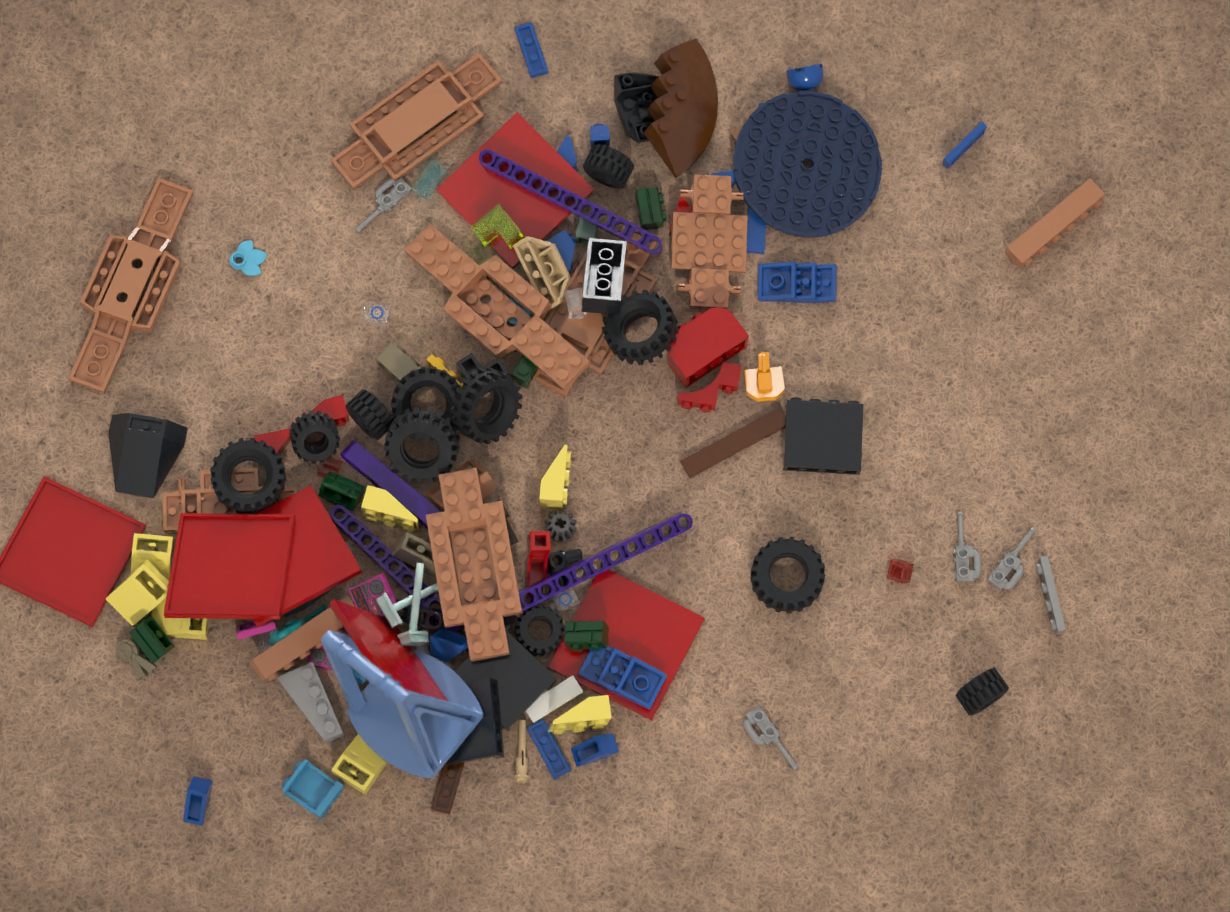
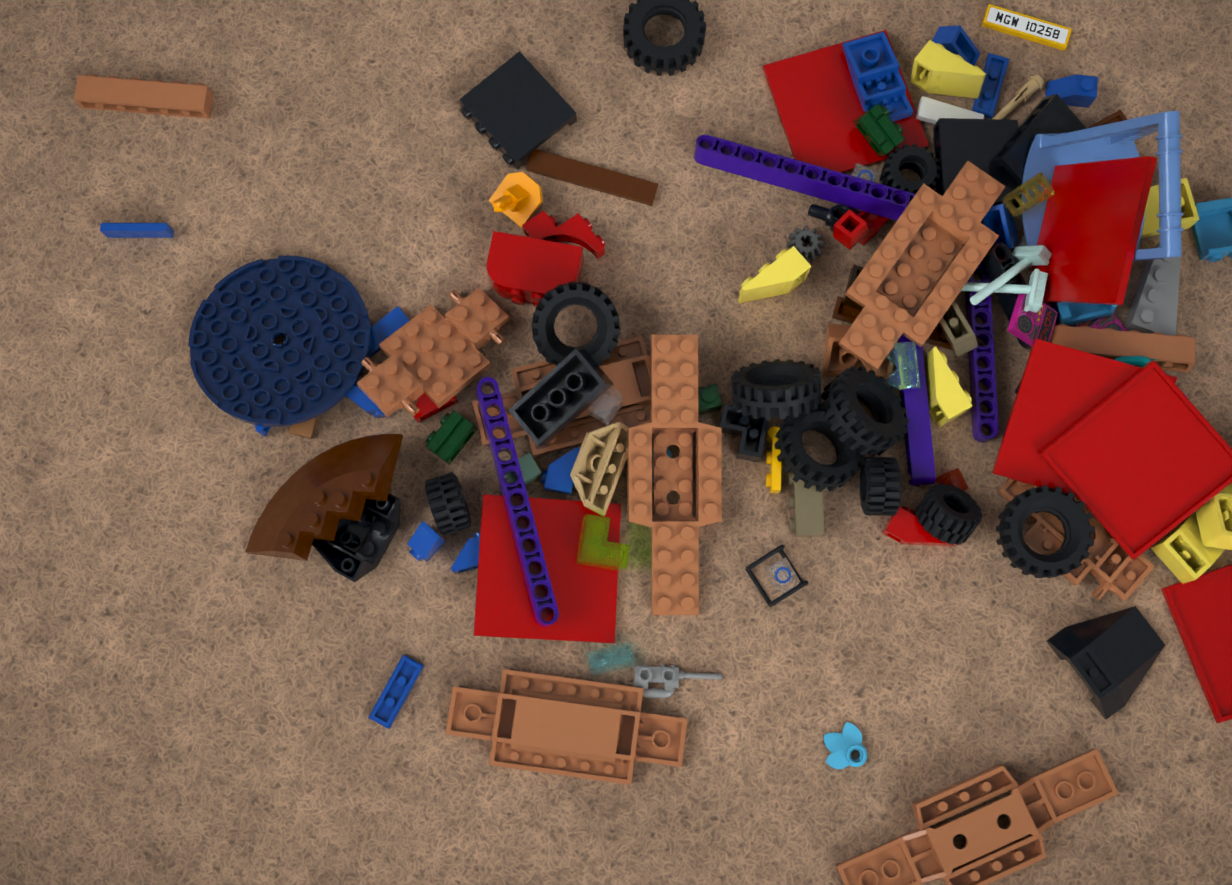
camera: 130 degrees left, 5 degrees up
(276, 439) = (983, 551): red slope -> none
(341, 491) = (964, 448): dark green brick -> none
(398, 303) = (771, 603): none -> black piece
(423, 496) = (907, 372): none -> clear light blue tile
(446, 682) = (1030, 184): none -> clear yellow slope
(492, 792) = (1074, 89): none -> blue slope
(564, 814) = (1026, 27): none -> tile
(797, 282) = (399, 254): blue slope -> none
(806, 77) = (195, 417): blue cylinder -> none

